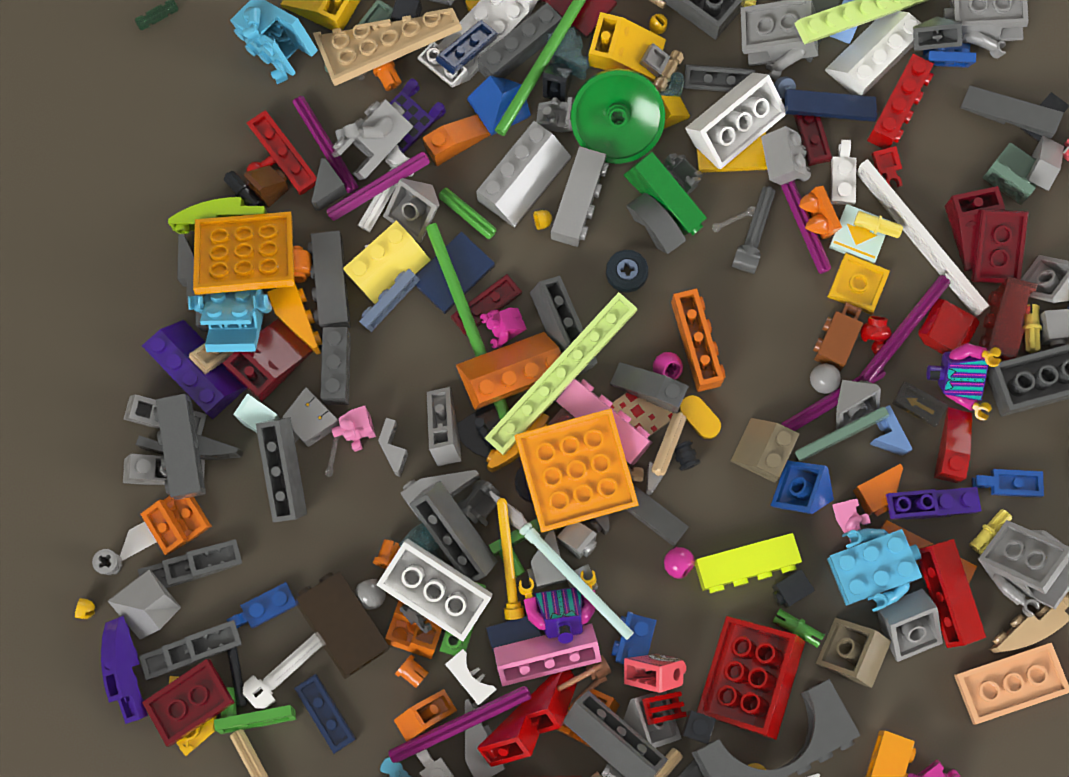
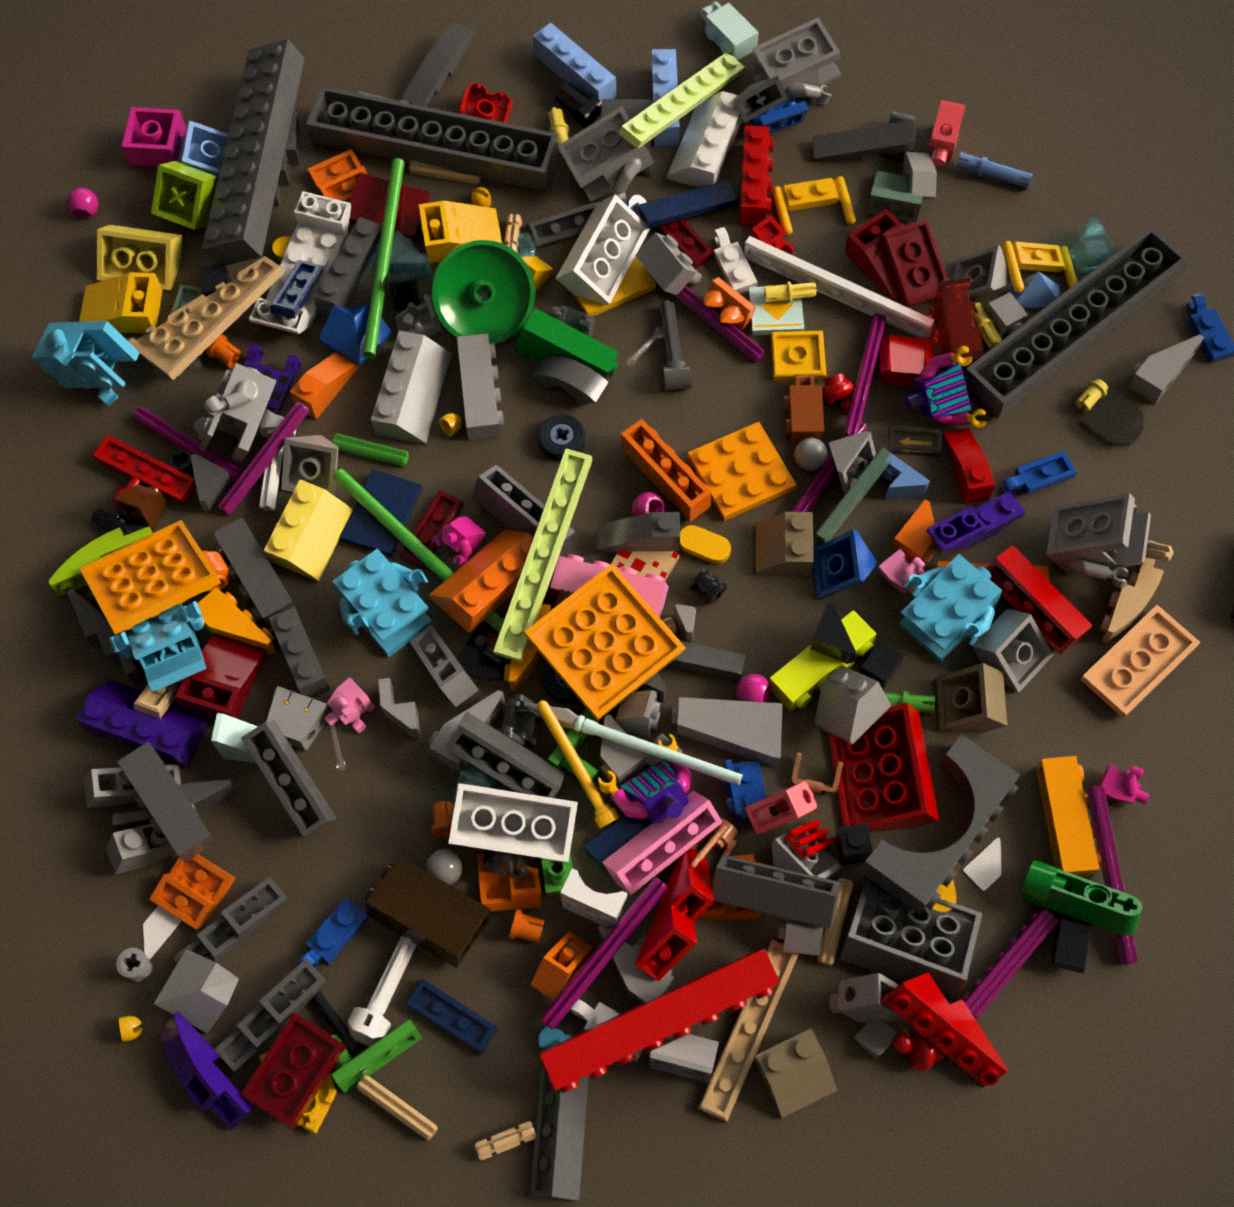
camera: 25 degrees left, 10 degrees down
(313, 151) = (179, 454): none -> black bush
(389, 299) = (327, 563): sand blue plate -> none
(417, 351) = (381, 601): none -> medium azure torso
(651, 585) = (733, 726): none -> light grey slope
(654, 60) = (494, 229): light grey tile -> none
(669, 444) = (686, 579): tan axle -> none
(690, 662) = (816, 787): none -> medium nougat piece
(749, 612) = (849, 704): none -> light grey slope
(761, 366) = (742, 471): none -> light orange plate
(762, 550) = (832, 638): none -> black slope
(941, 140) = (812, 195): none -> yellow plate
(989, 531) = (1042, 529): light yellow axle -> none

